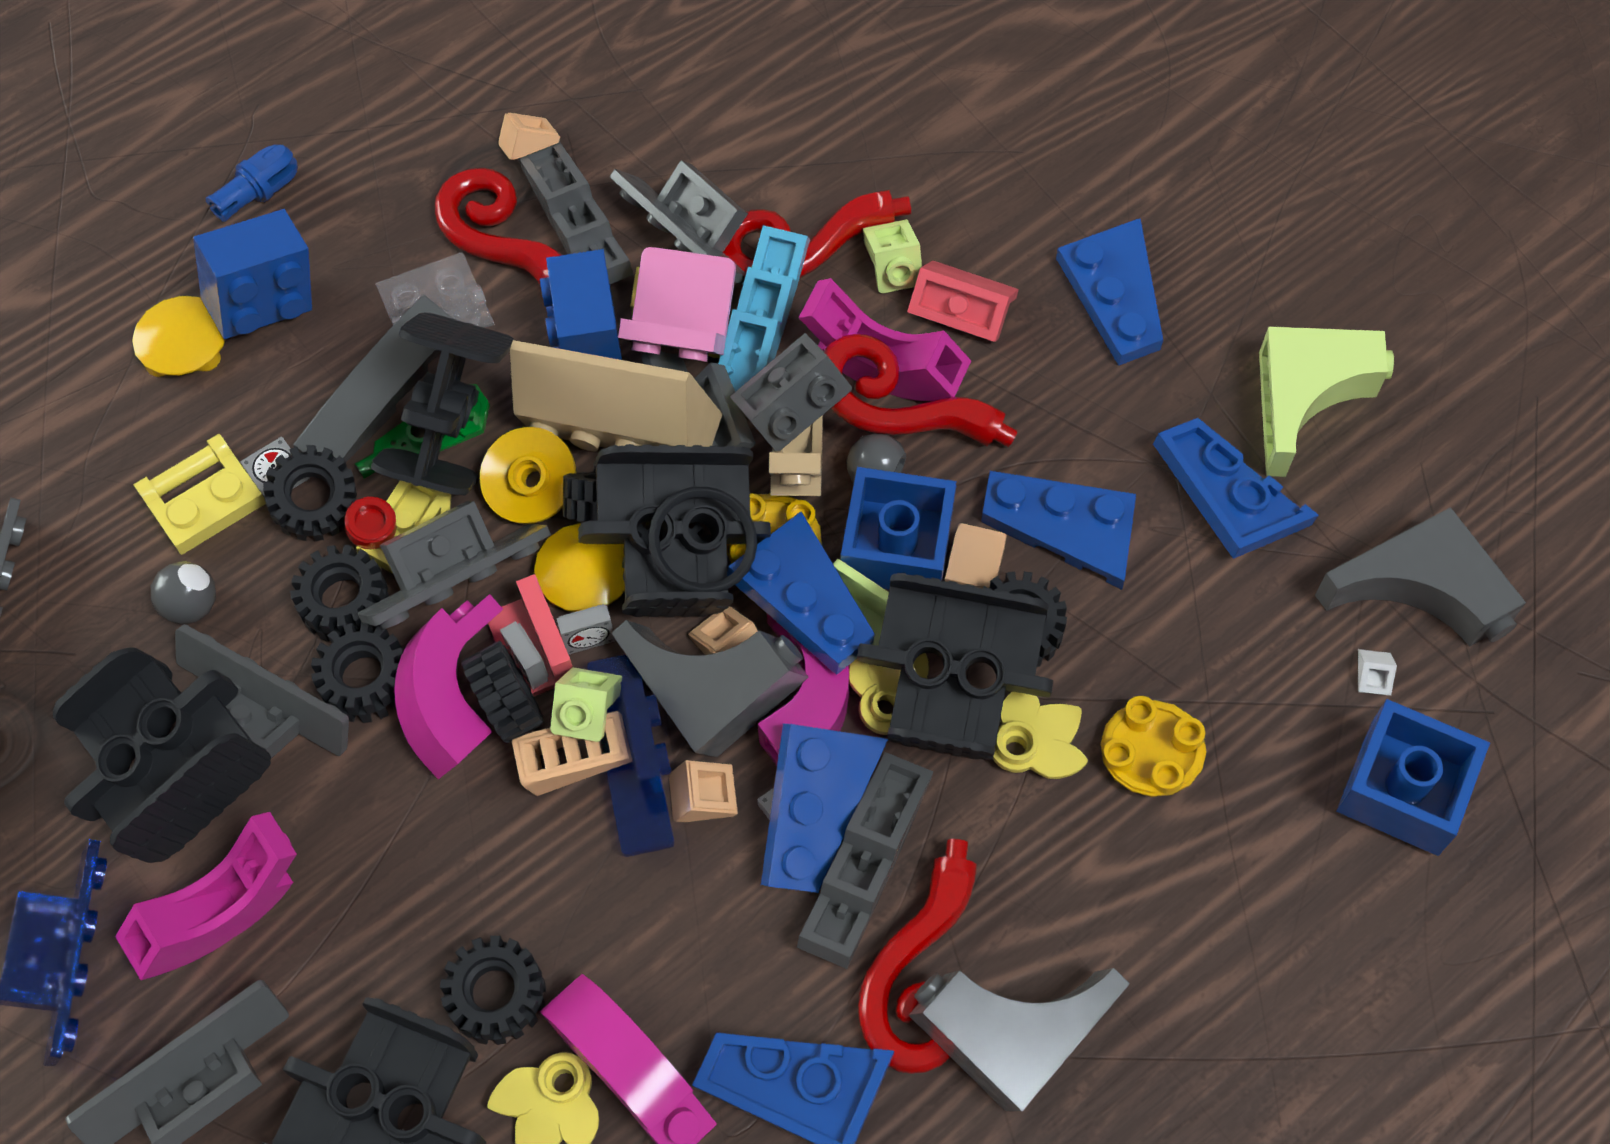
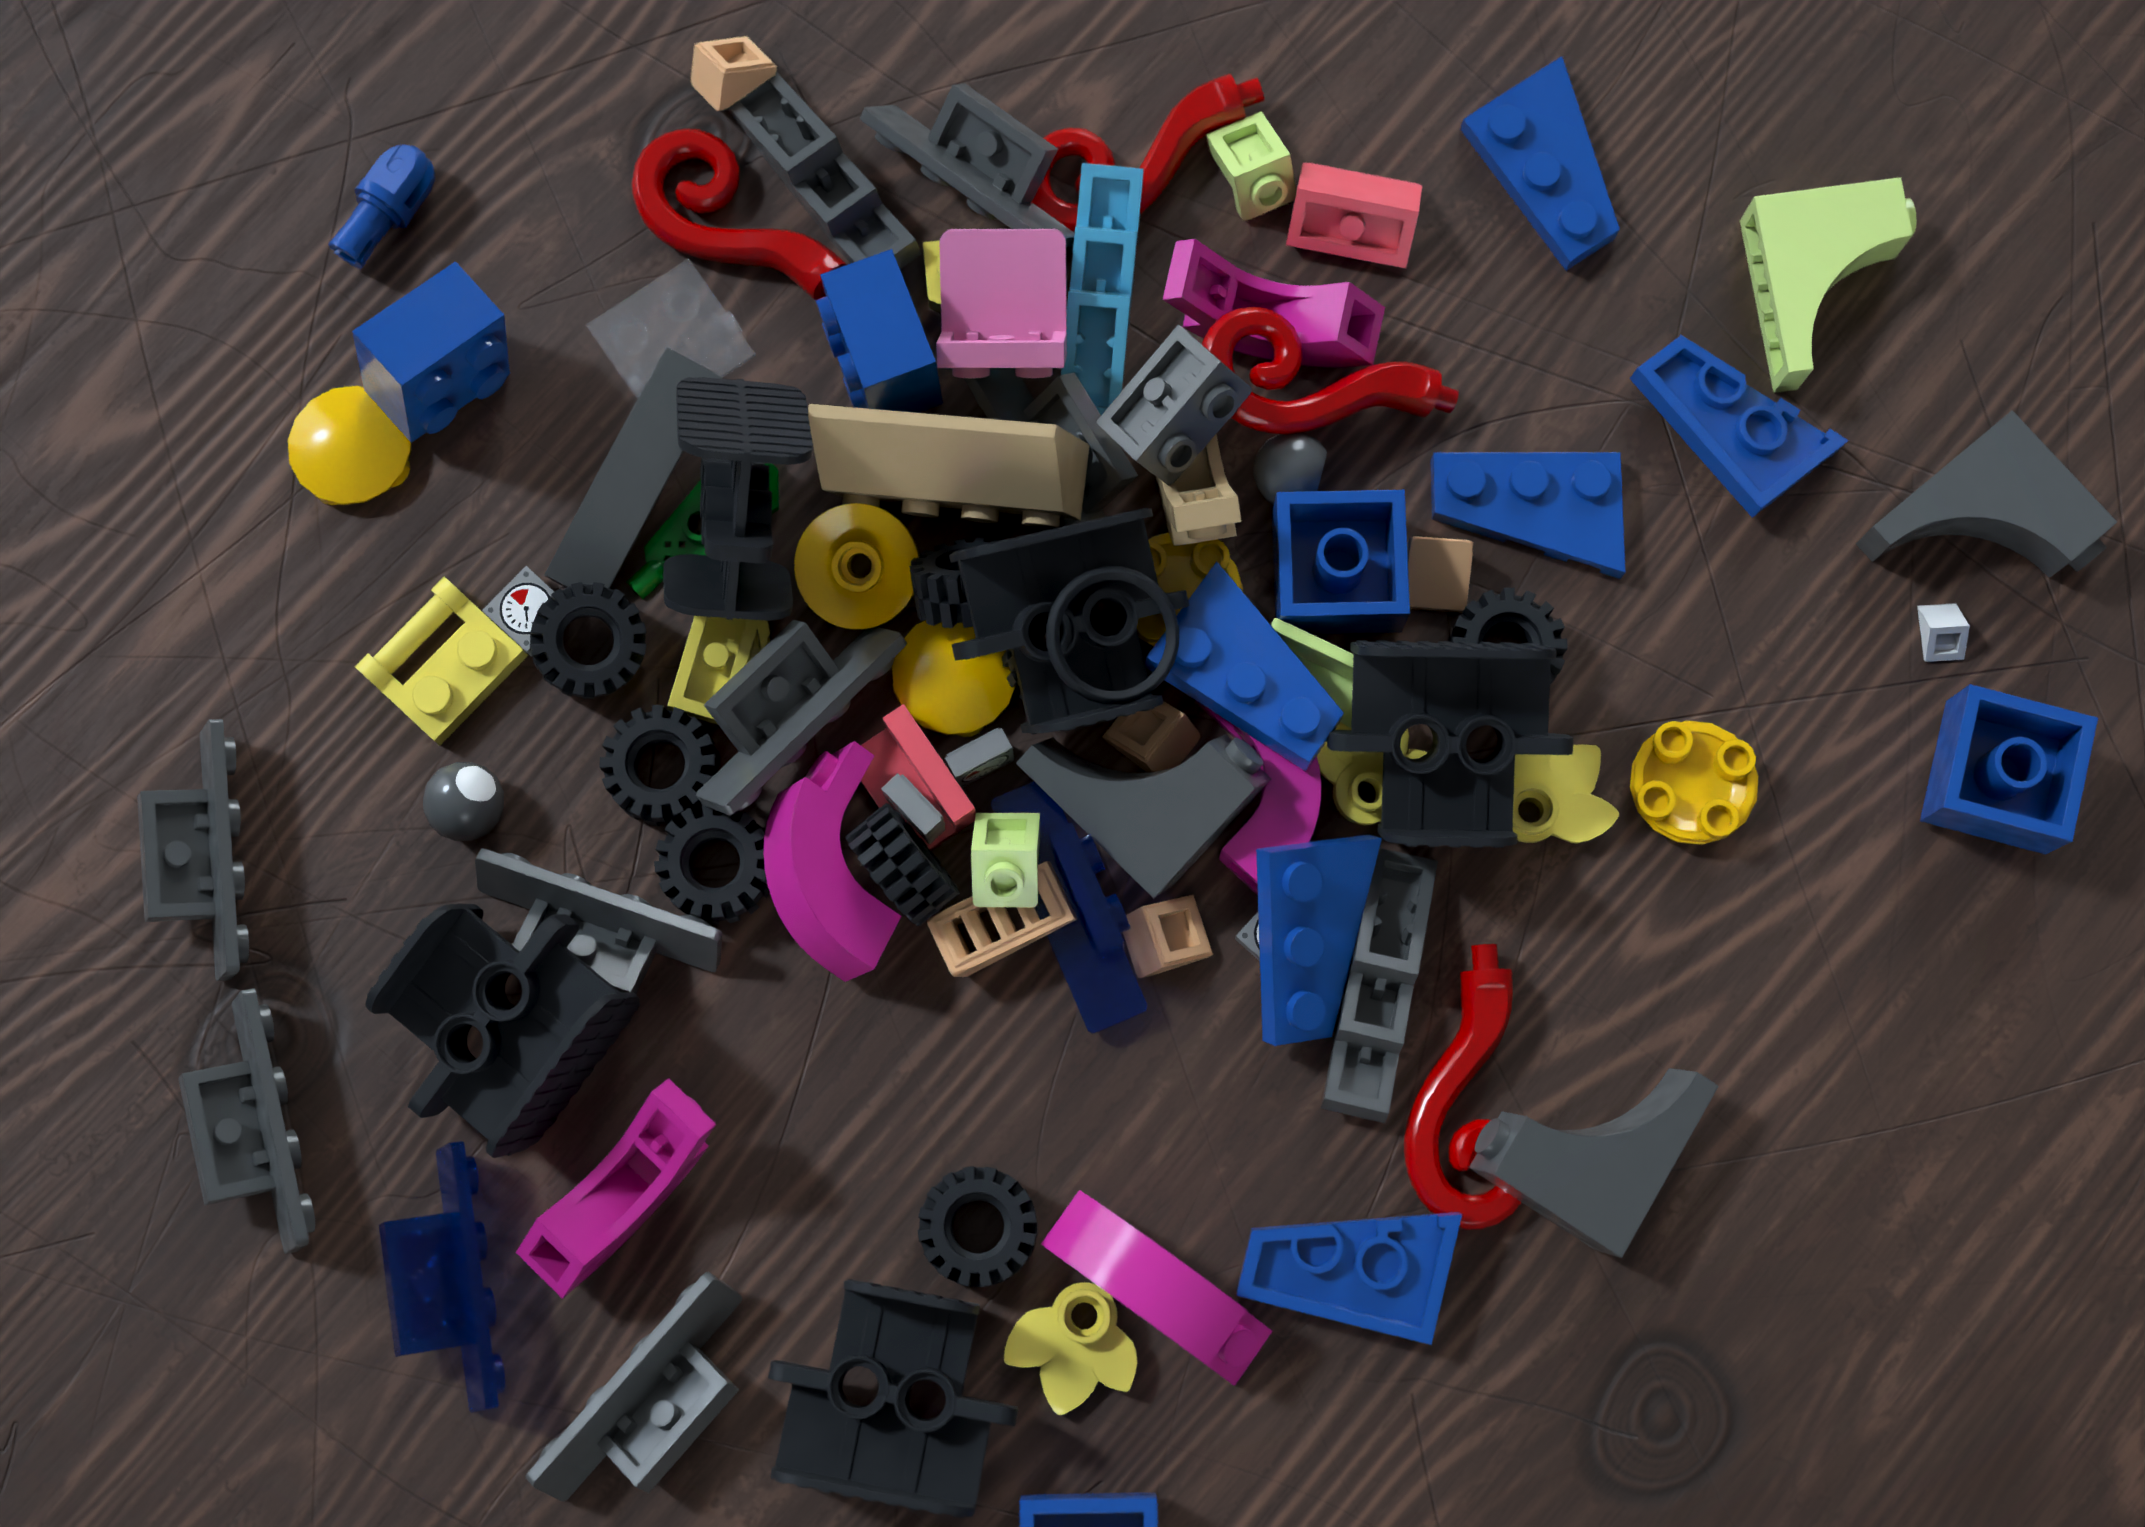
camera: 10 degrees left, 15 degrees up
(370, 522) = (678, 671): red tile -> none

